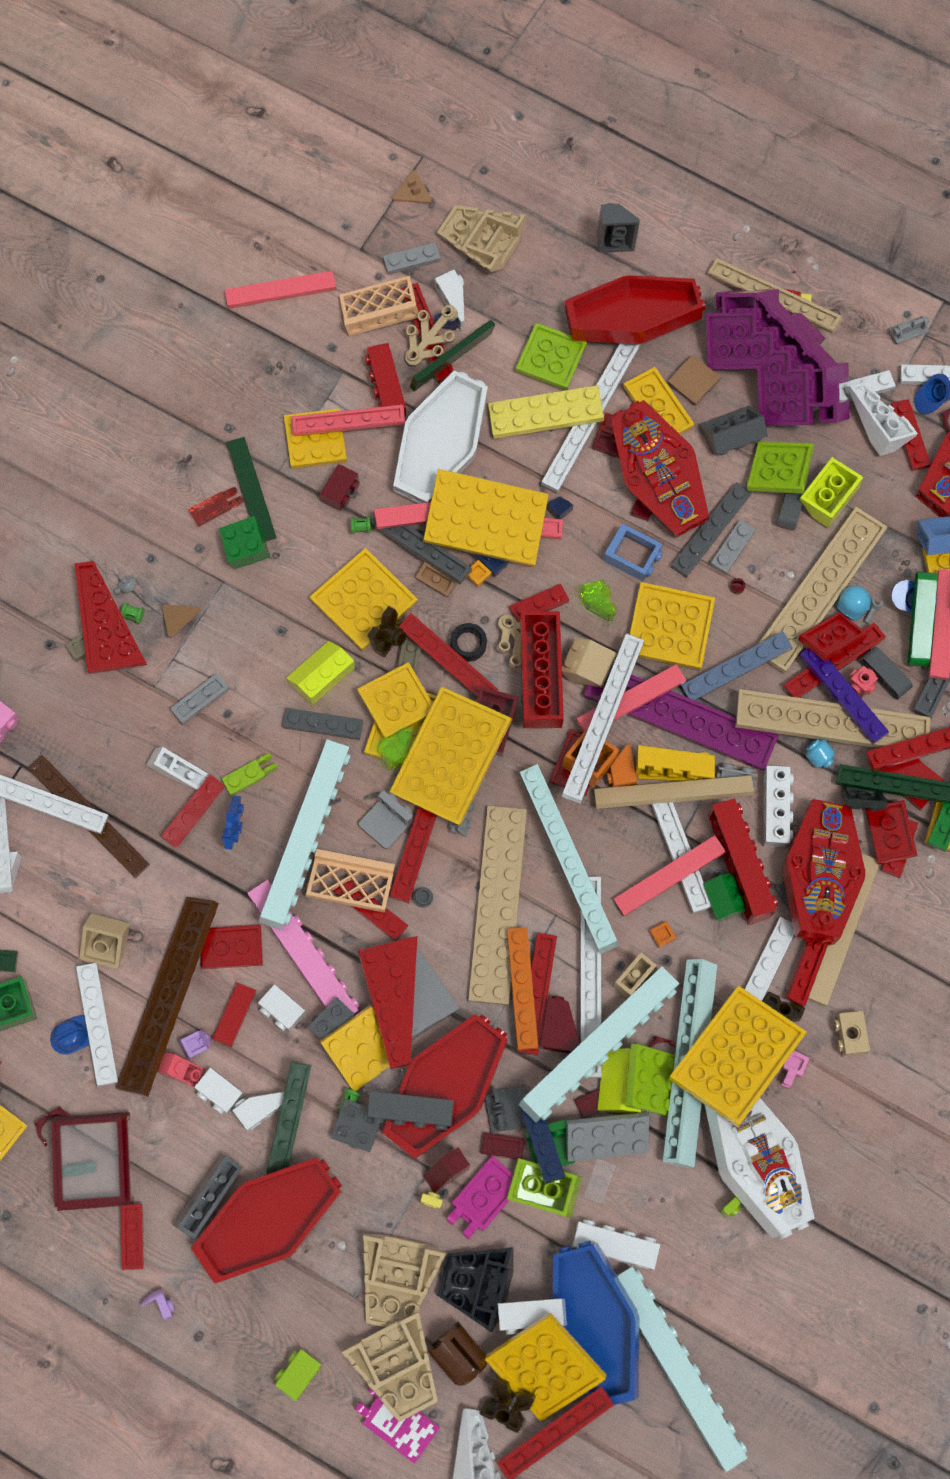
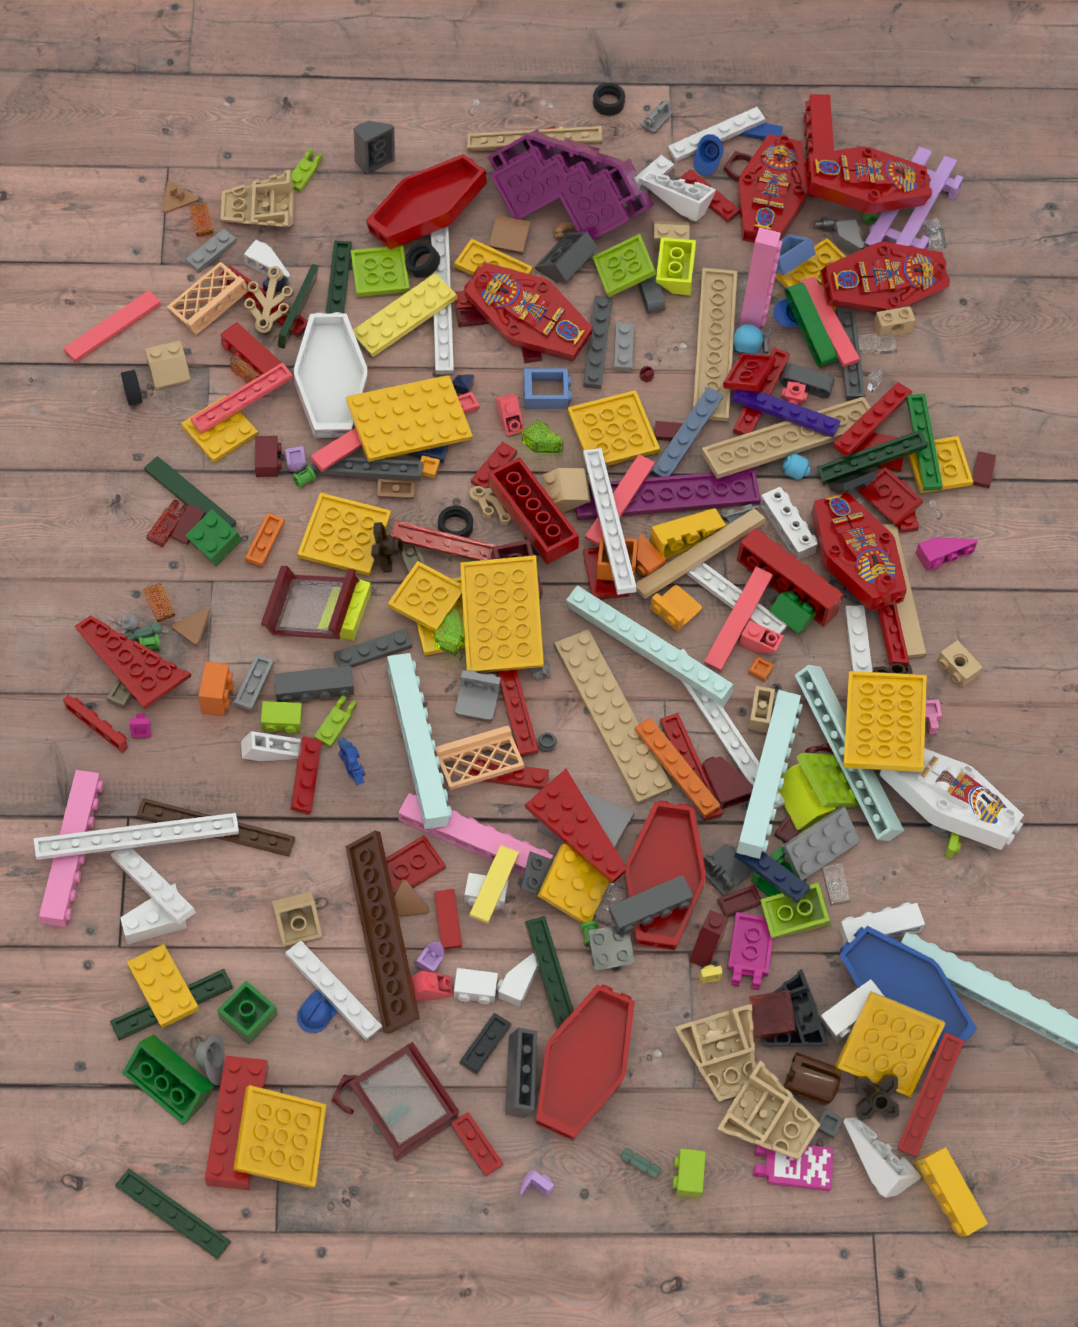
camera: 30 degrees left, 10 degrees down
(45, 670) = (91, 719): none -> red plate
(78, 687) = (140, 726): none -> dark pink tile
(133, 599) = (144, 632): none -> sand green axle
(159, 688) = (215, 689): none -> orange brick
(163, 578) = (159, 602): none -> clear orange plate
(197, 1148) = (485, 1043): none -> black tile
(203, 745) = (281, 717): none -> lime brick
(207, 979) = (408, 901): none -> medium nougat piece
(234, 513) = (187, 521): none -> dark red tile
(250, 729) = (314, 684): none -> dark grey brick
(258, 359) = (131, 387): none -> black tyre
(263, 1338) = (640, 1162): none -> sand green axle
(288, 651) = (309, 604): none -> piece
(288, 1008) = (494, 884): none -> light yellow tile
(290, 567) = (264, 540): none -> orange plate
(305, 353) = (167, 365): none -> tan slope
(364, 504) = (296, 459): none -> lavender plate
(367, 389) = (242, 369): none -> clear orange plate
(420, 224) = (201, 219): none -> clear orange plate
(450, 1403) = (829, 1123): none -> dark grey plate
(460, 1273) = (772, 1014): none -> clear red plate
(508, 346) = (339, 277): none -> dark green tile
(543, 221) = (305, 170): none -> lime hinge
(583, 560) = (509, 413): none -> coral slope
(600, 374) = (415, 253): none -> black tyre
(619, 832) = (675, 607): none -> light orange bracket
(677, 906) = (760, 639): none -> coral slope
(720, 651) = (666, 430): none -> dark red tile
(746, 397) = (564, 226): none -> medium nougat arm
(848, 453) = (669, 229): none -> tan slope
(880, 277) = (609, 89): none -> black tyre
(887, 555) = (761, 278): none -> bright pink brick
(903, 910) = (941, 550): none -> dark pink slope

